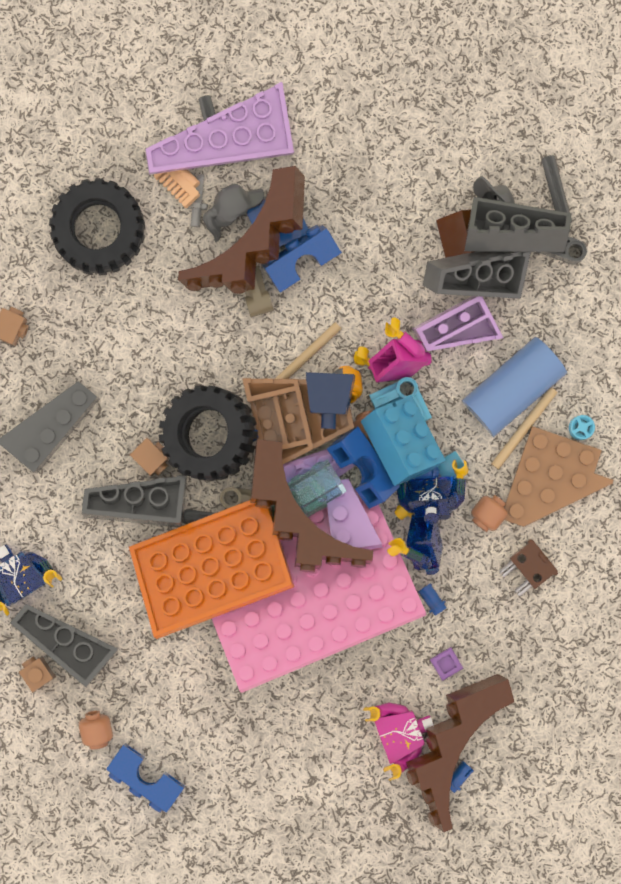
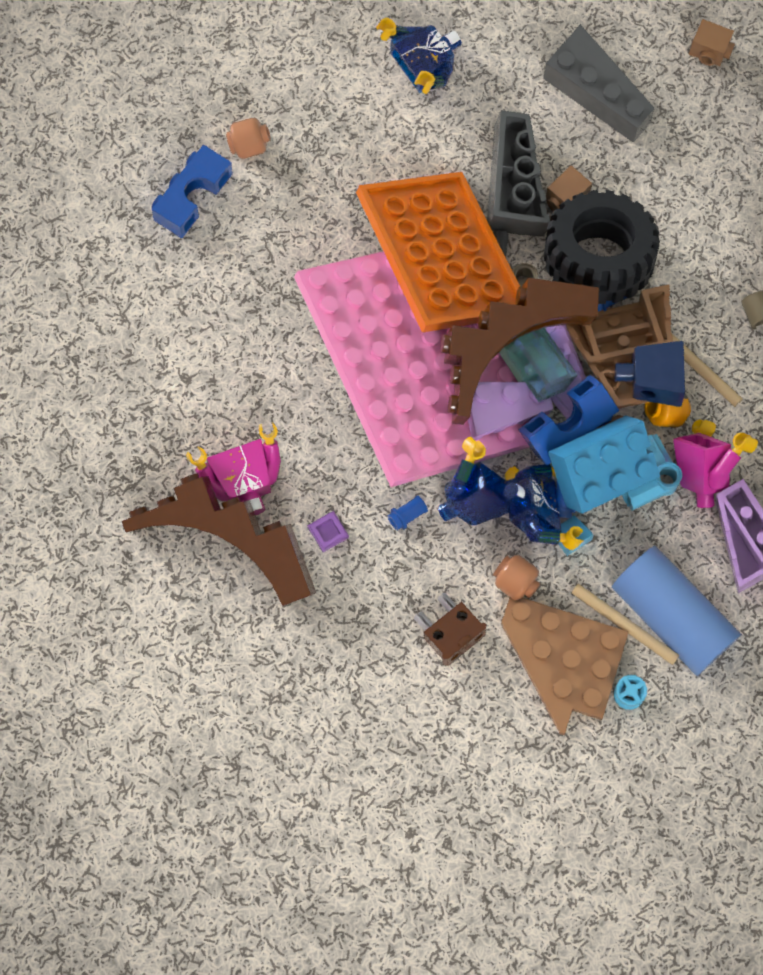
camera: 85 degrees right, 15 degrees down
(36, 673) = (313, 75): medium nougat brick -> none
(77, 654) = (343, 106): dark grey wedge -> none
(460, 775) = (188, 545): blue pin -> none

